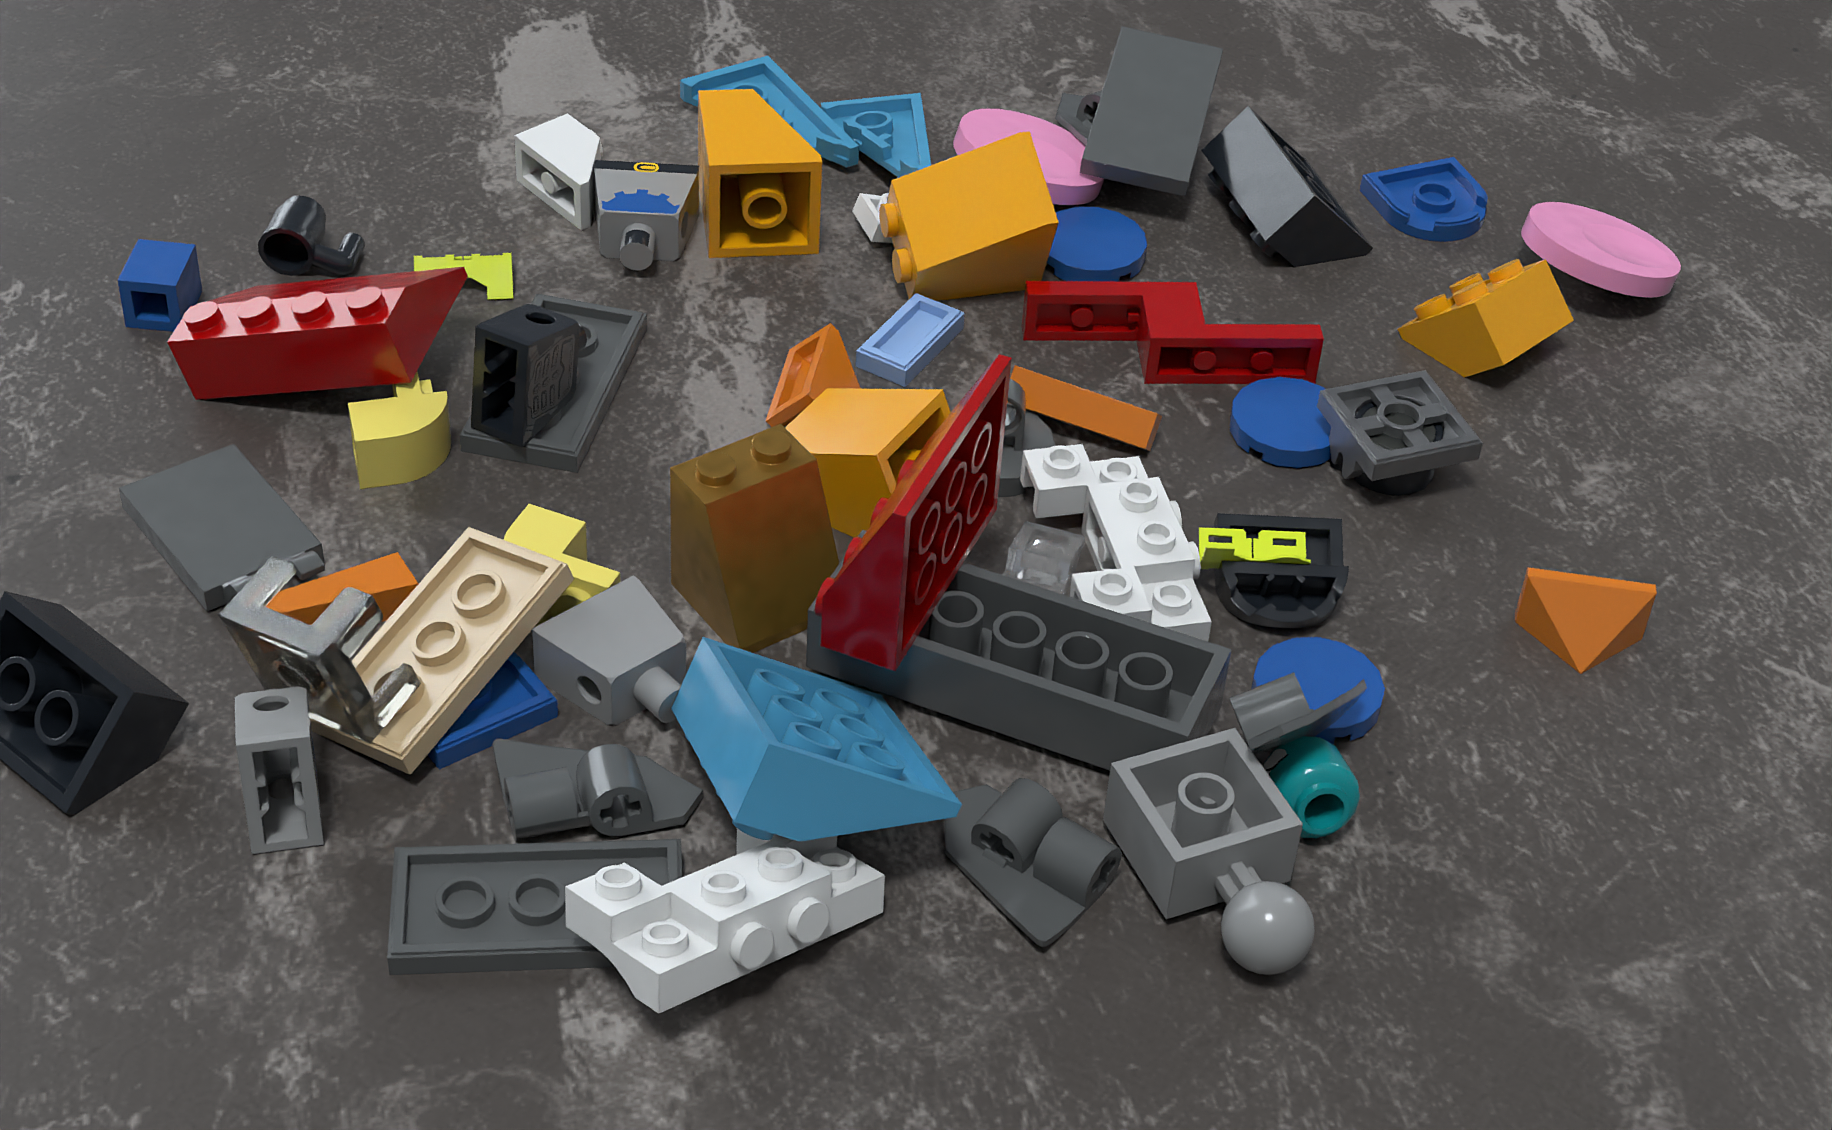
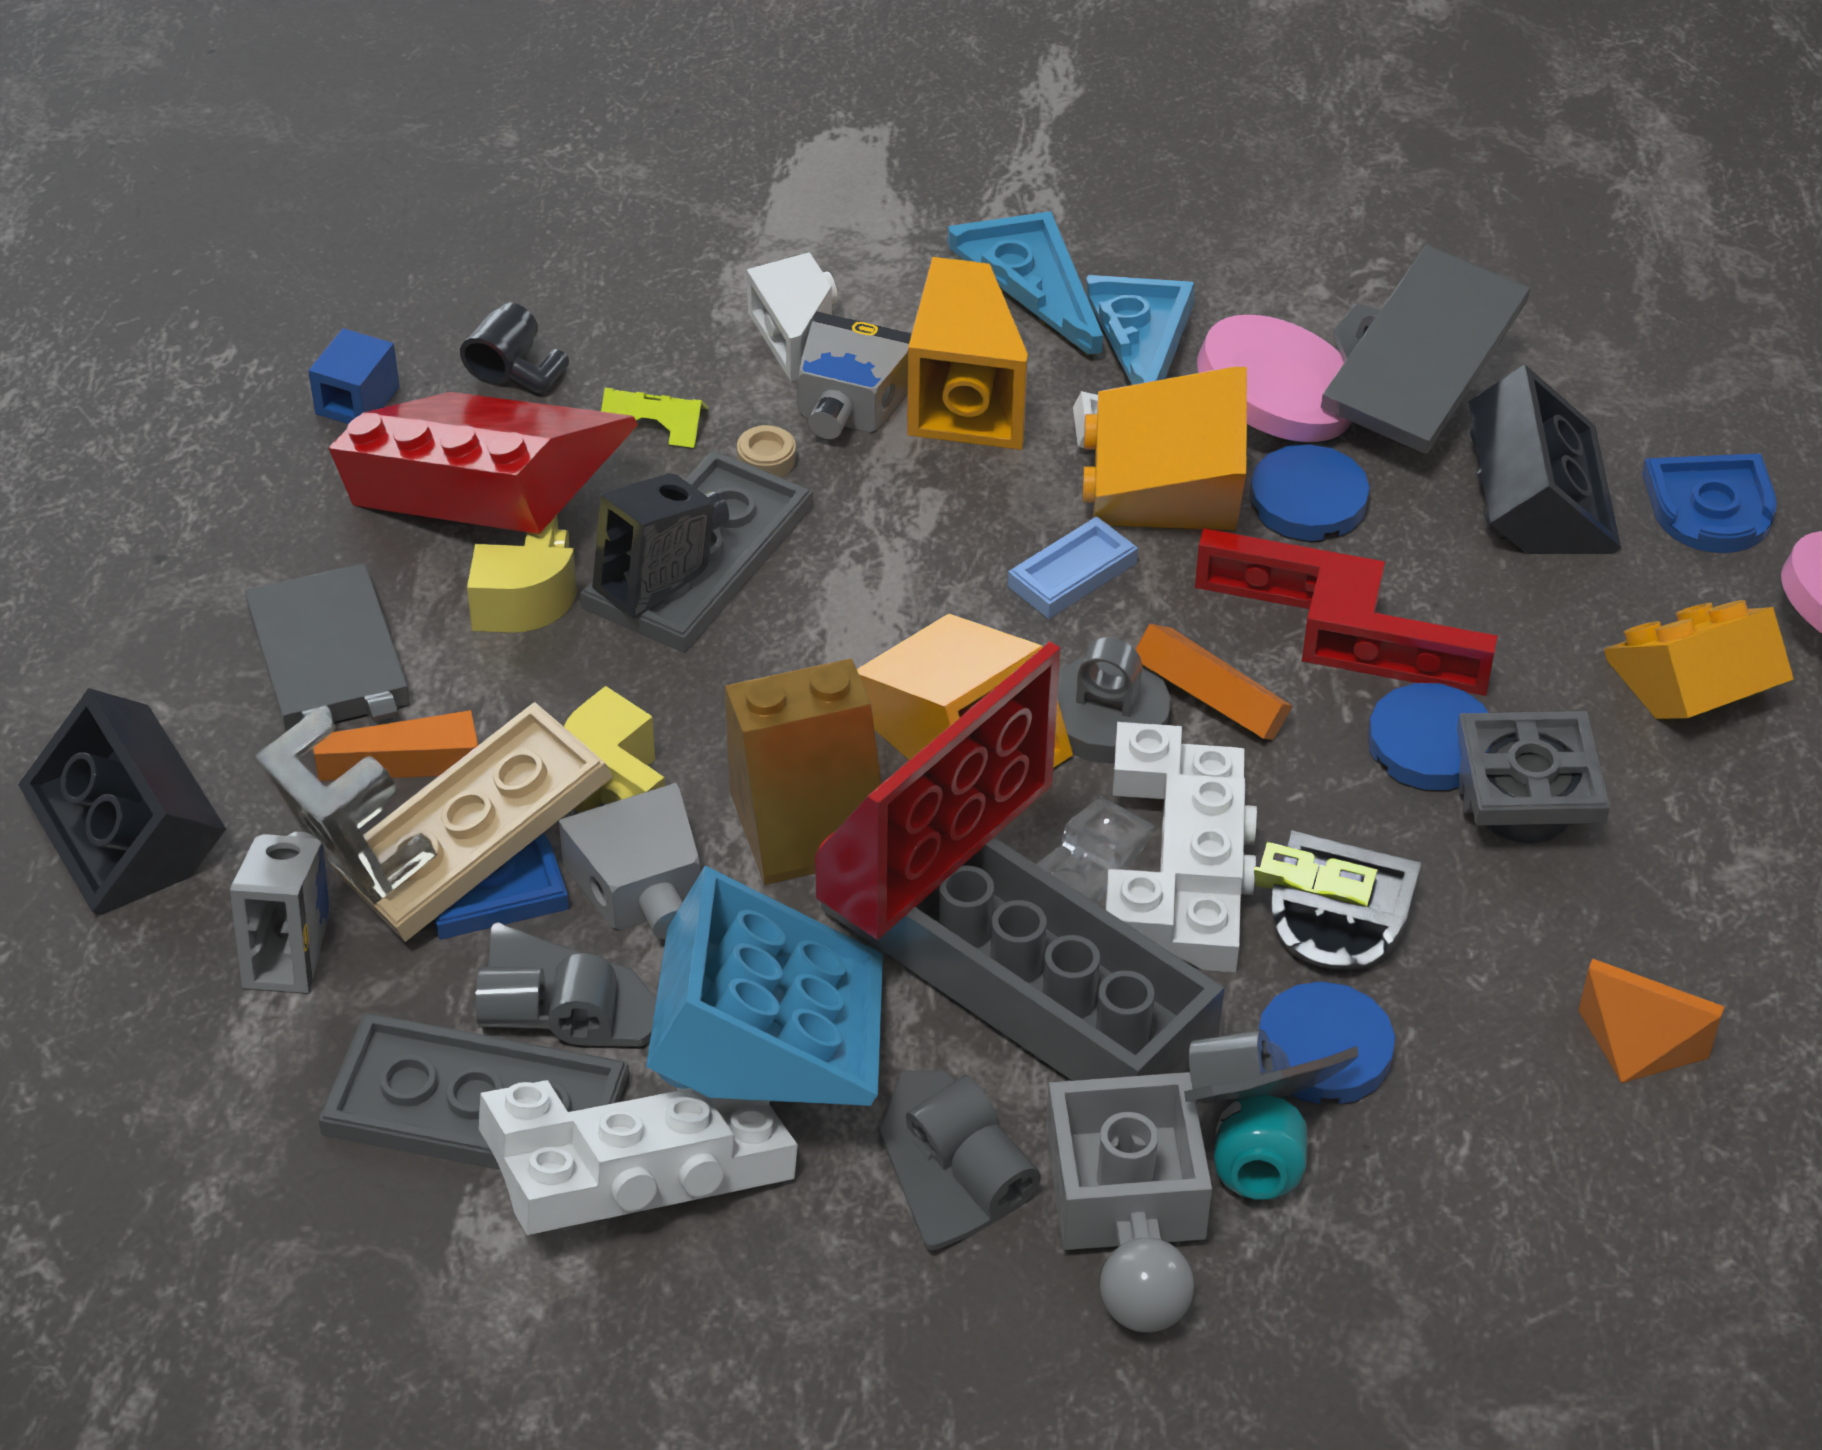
camera: 20 degrees right, 5 degrees up
(587, 285) = (768, 449): none -> tan tile
(808, 371) = (958, 586): orange slope -> none

